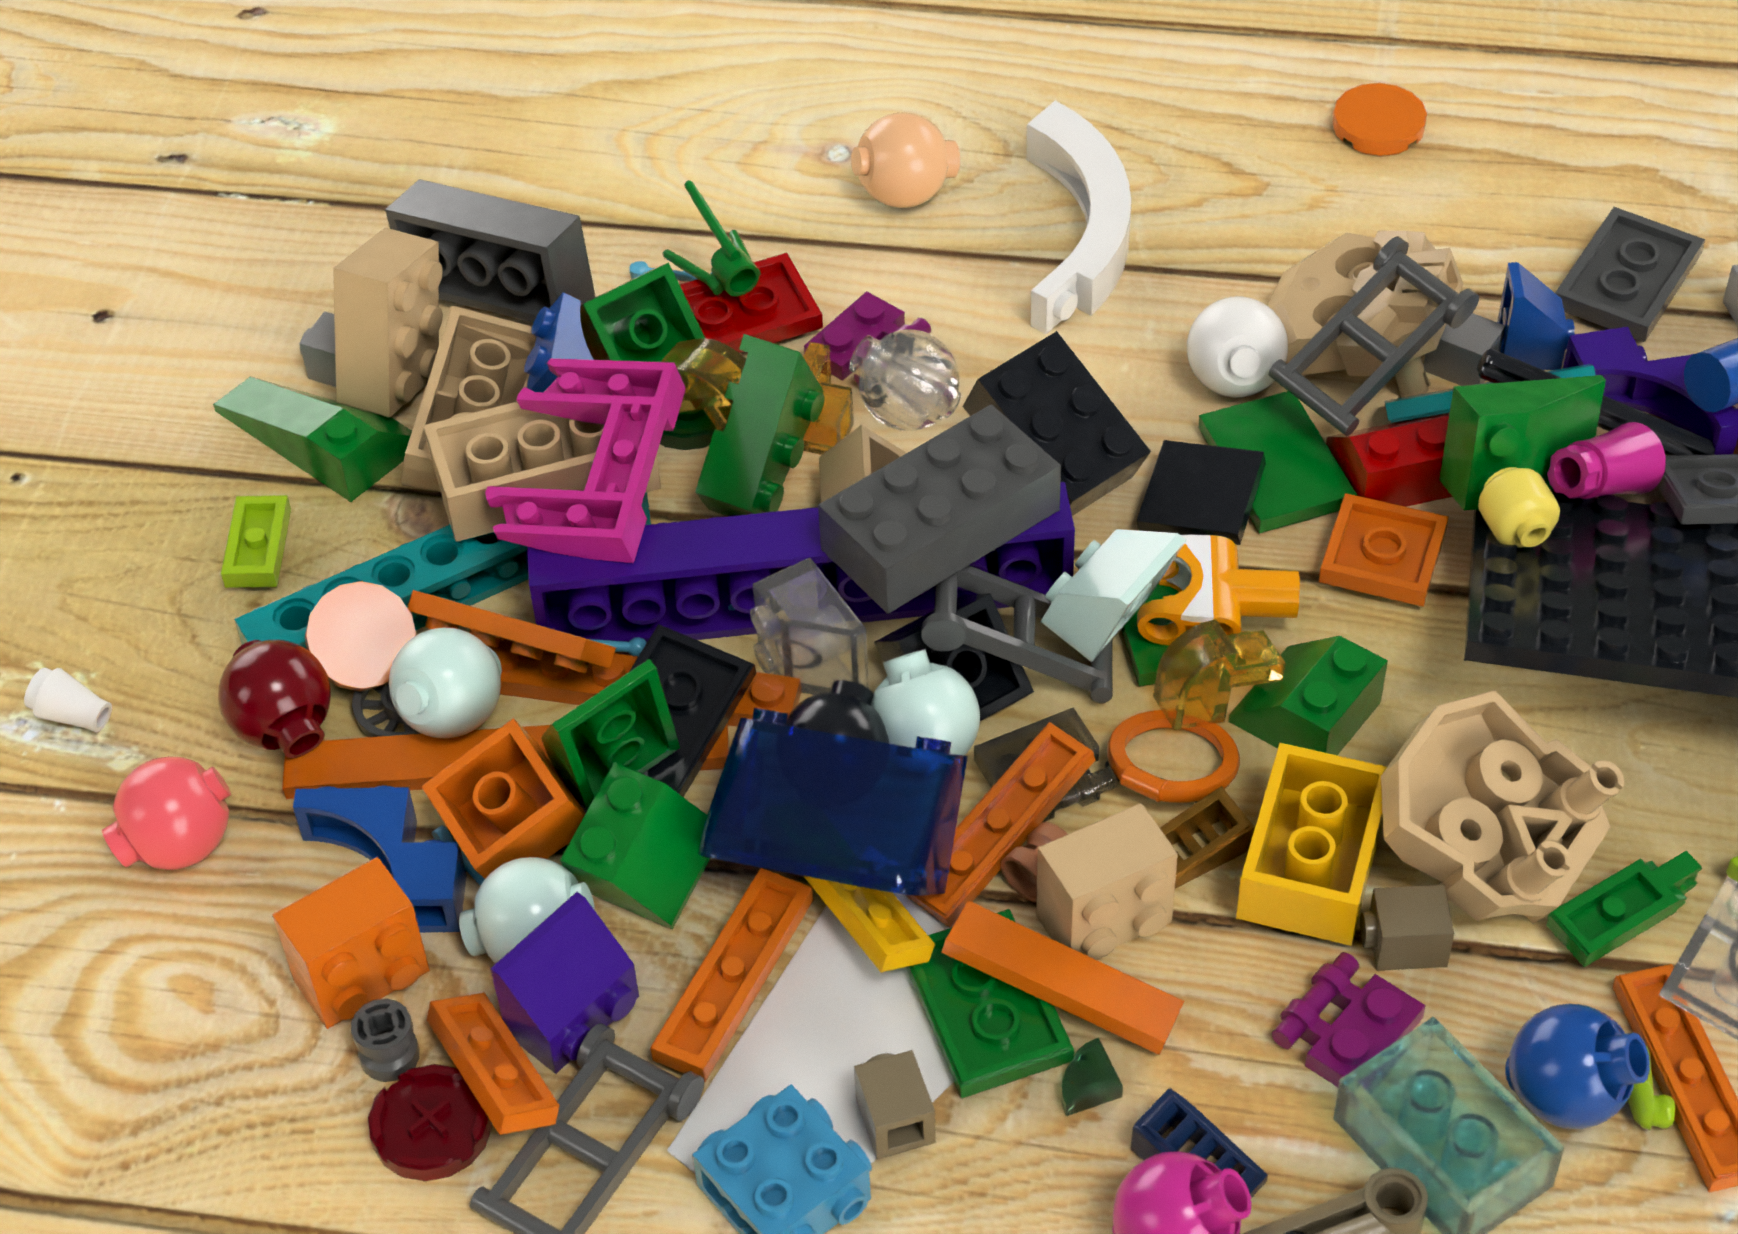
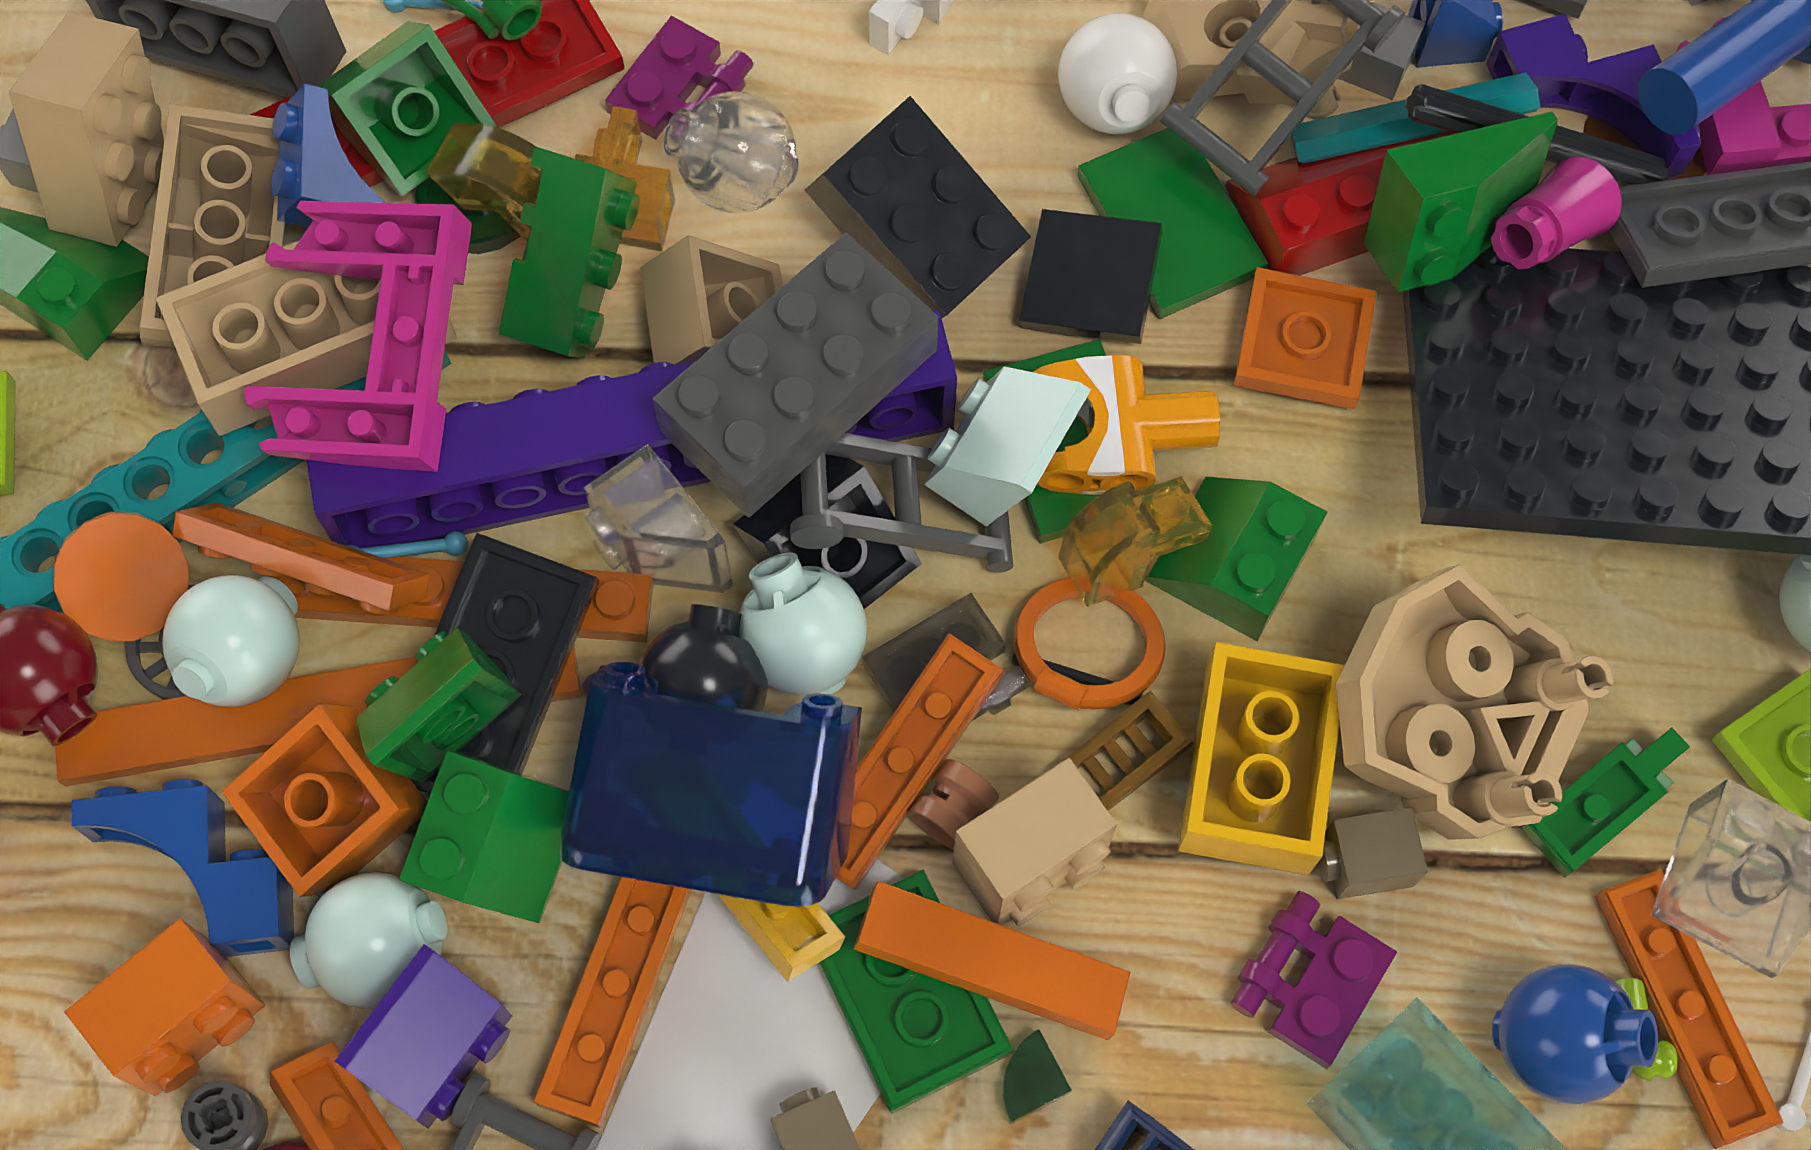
camera: 10 degrees left, 20 degrees up
(1519, 507) = (1466, 299): light yellow head -> none

